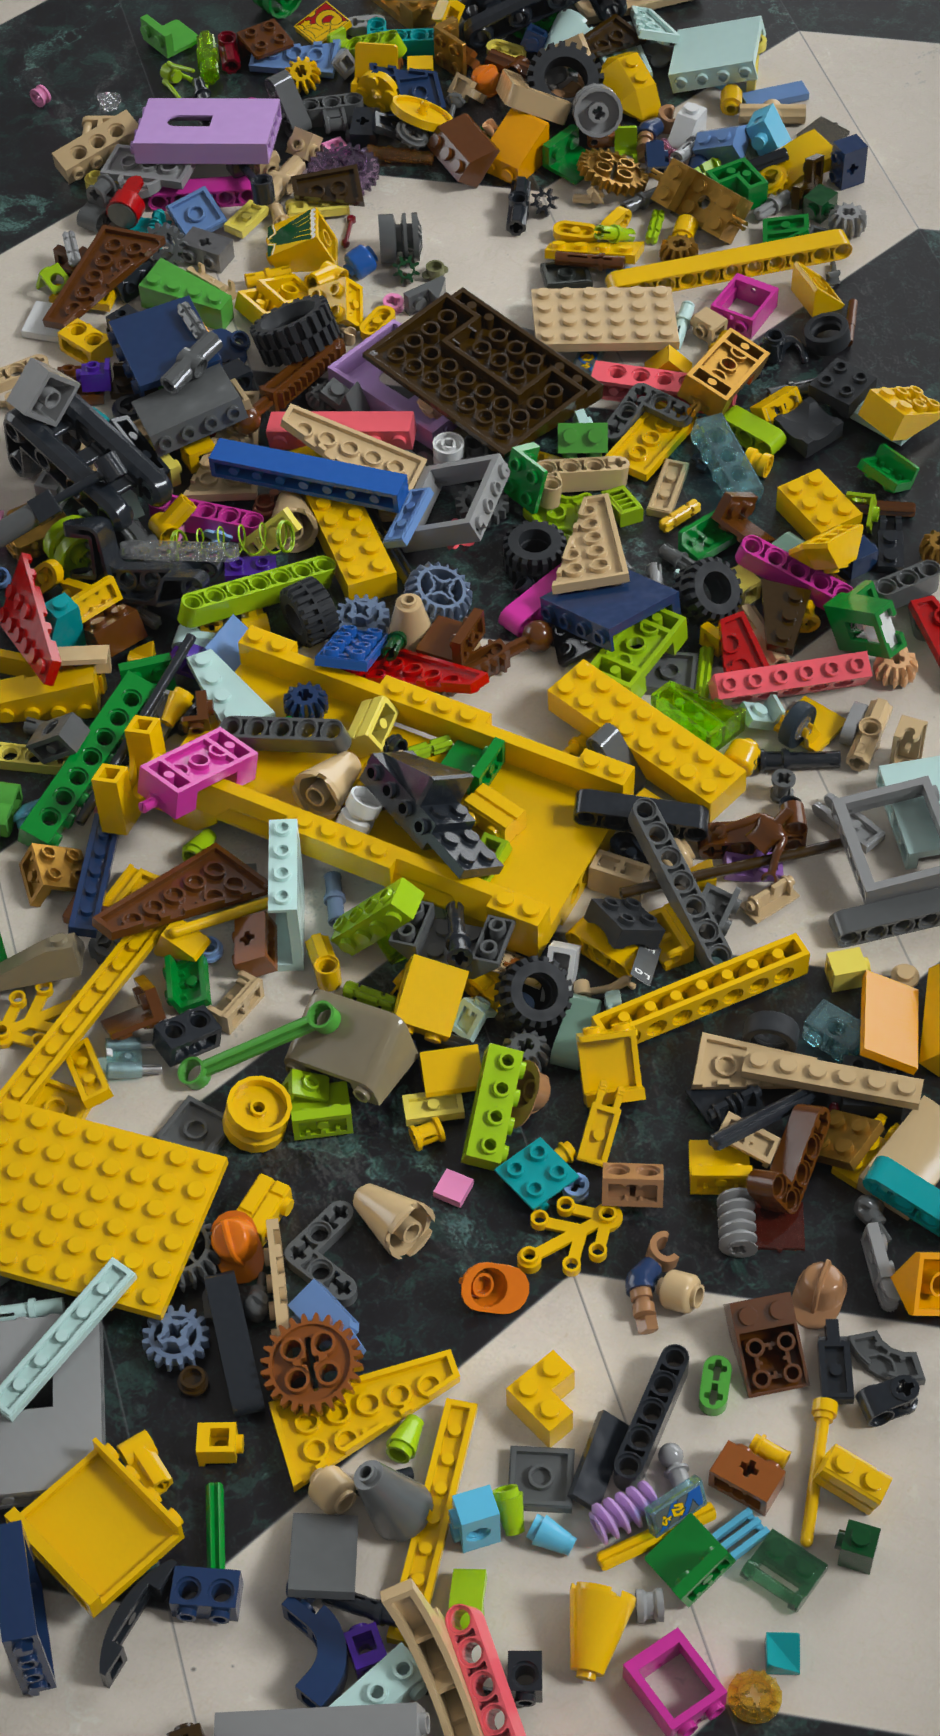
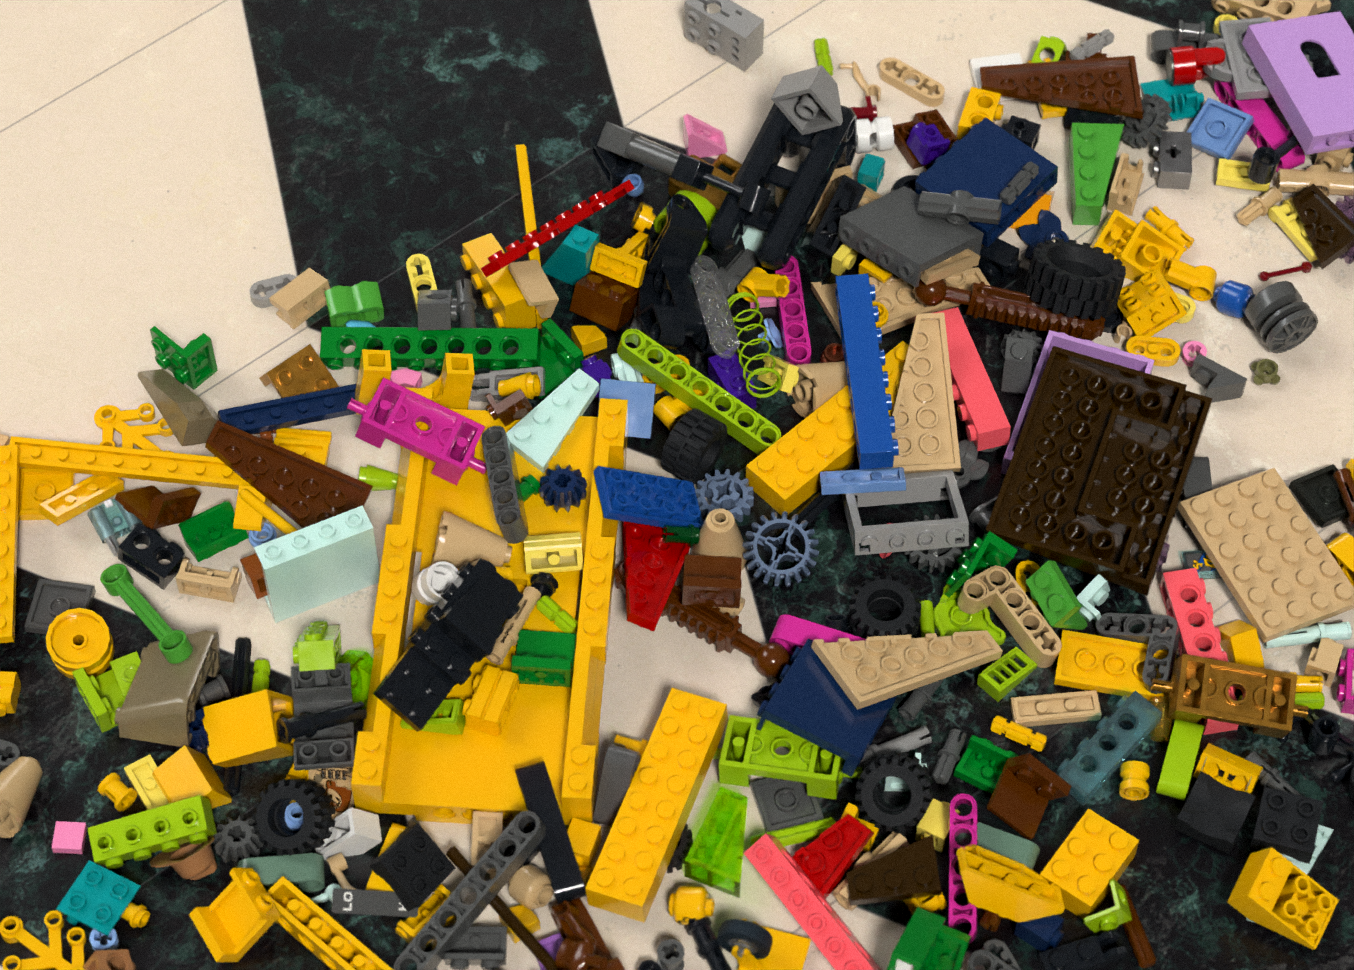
camera: 65 degrees right, 5 degrees up
(147, 710) = (504, 365): black piece -> none
(302, 242) = (1229, 239): yellow slope -> none
(324, 962) = (280, 632): yellow piece -> none
(334, 897) = (355, 615): sand blue pin -> none
(412, 266) = (1246, 343): dark green gear -> none
(448, 448) = (984, 483): white wheel -> none
(472, 1016) = (260, 776): light aqua bracket -> none
(600, 1127) = (169, 933): yellow hinge -> none
(764, 715) = (761, 904): light aqua bracket -> none
(889, 469) = (1190, 917): green bracket -> none

